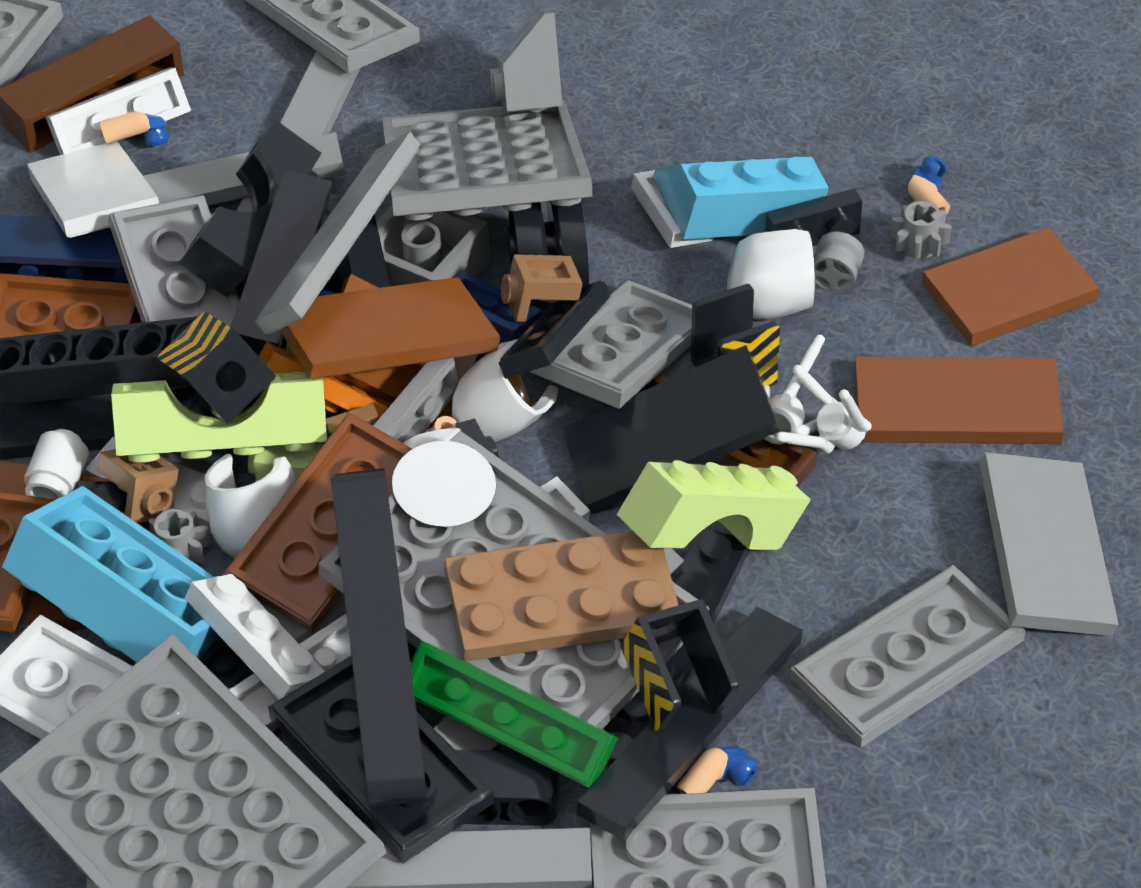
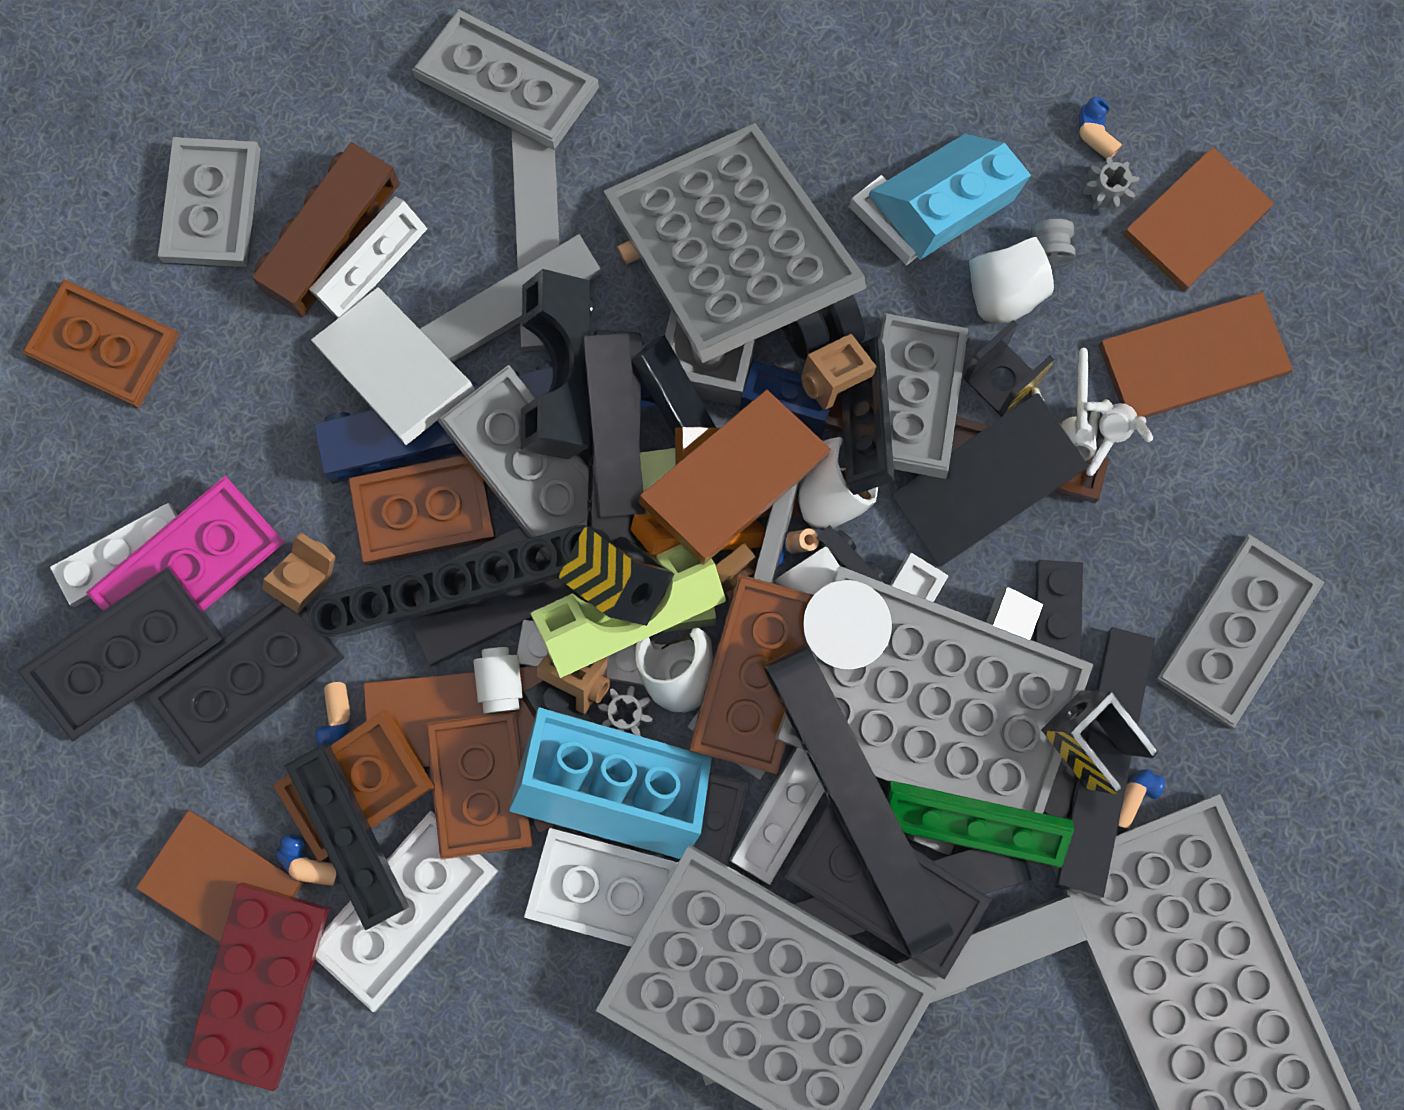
camera: 20 degrees left, 30 degrees up
(133, 124) = (401, 265): light nougat arm -> none
(253, 633) = (744, 808): white plate -> none
(337, 234) = (667, 403): light grey tile -> none
(529, 66) = (723, 108): light grey slope -> none
(555, 593) = (980, 700): medium nougat plate -> none
(682, 499) = (1070, 574): yellowish green arch -> none
(820, 216) = (1008, 215): black plate -> none
(1048, 545) = (1316, 490): light grey tile -> none

